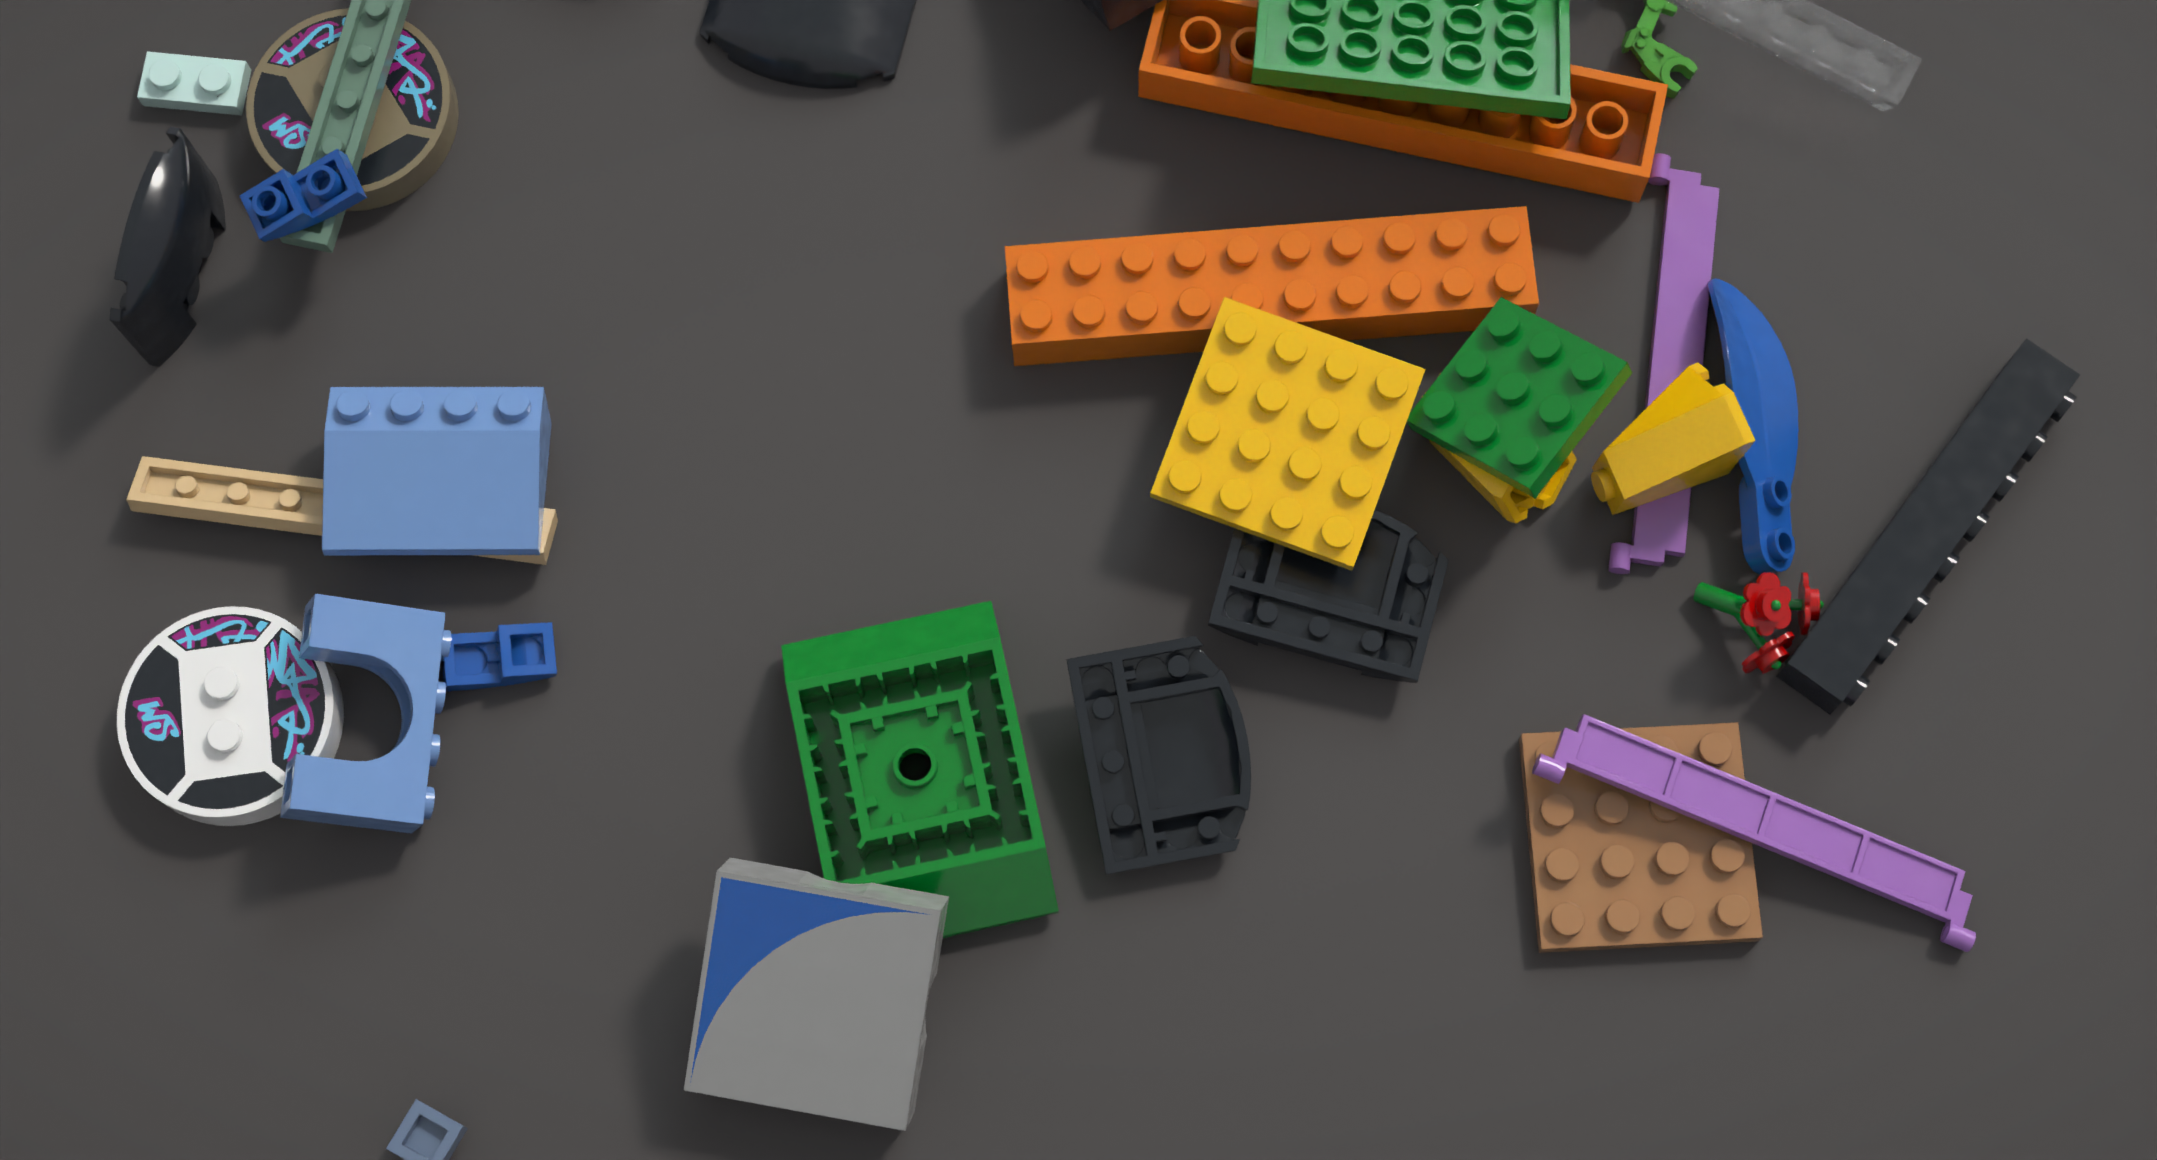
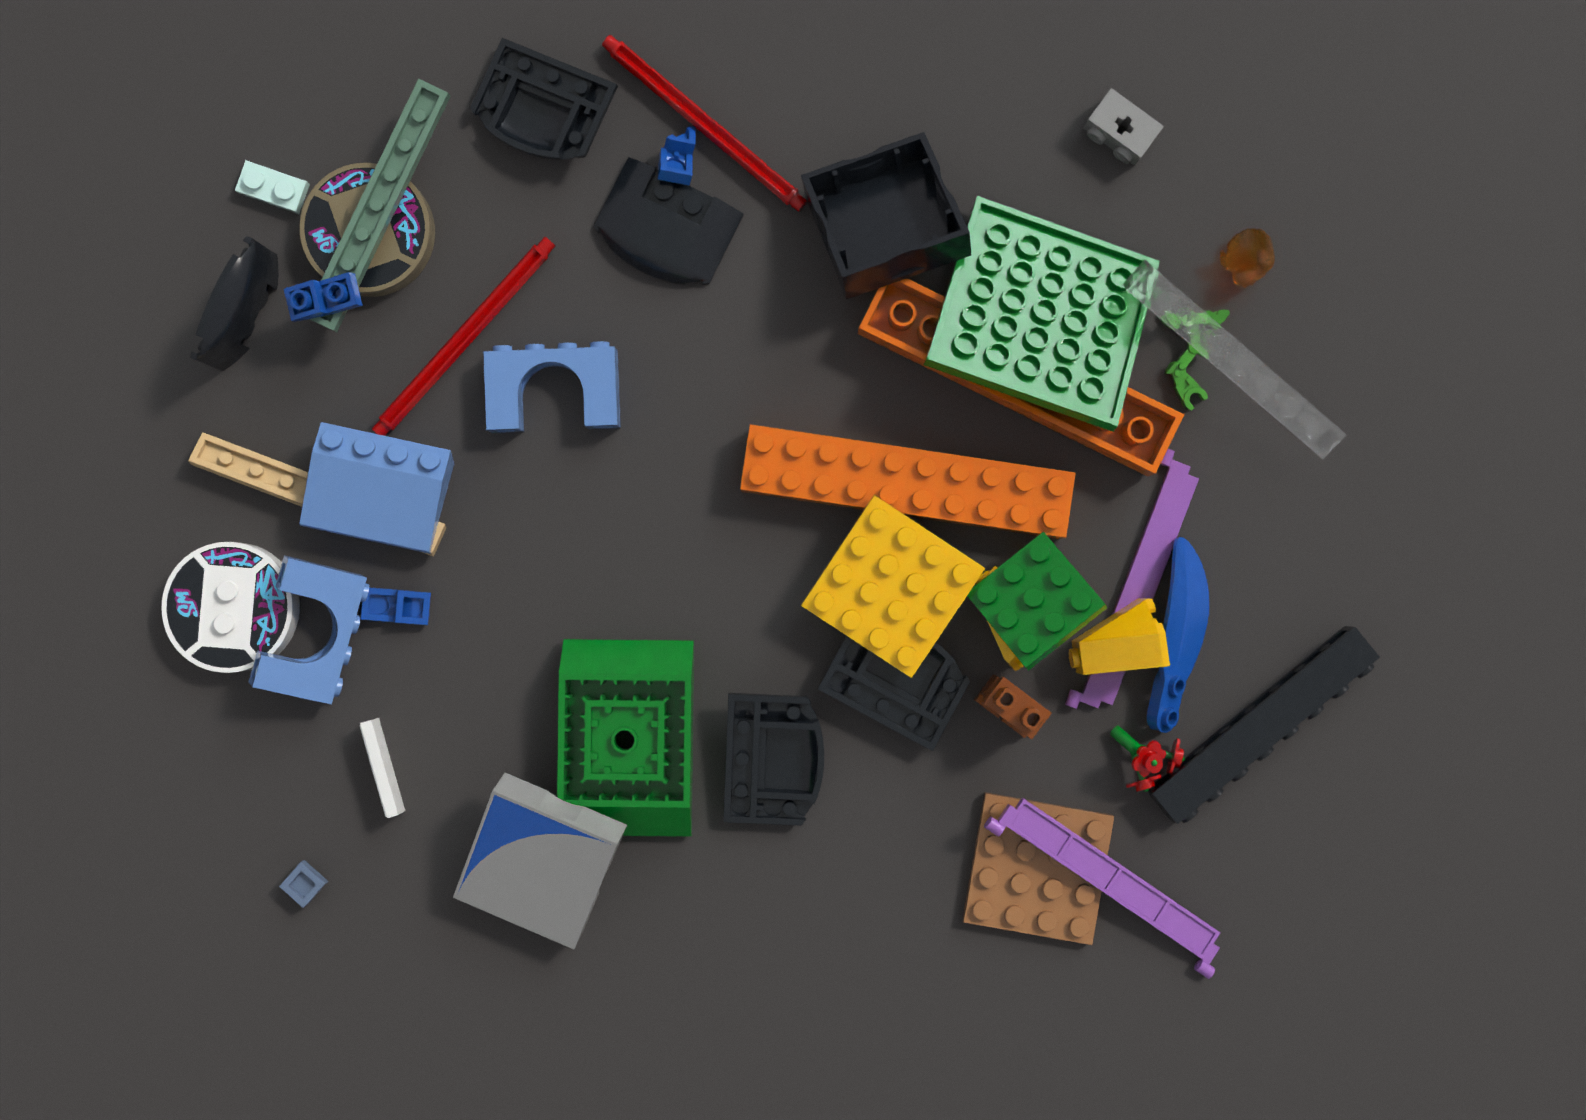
camera: 10 degrees right, 15 degrees up
(524, 914) = (382, 768): none -> white tile
(533, 227) = (463, 337): none -> red piece
(616, 256) = (510, 370): none -> medium blue arch
(1528, 565) = (1013, 705): none -> dark orange hips

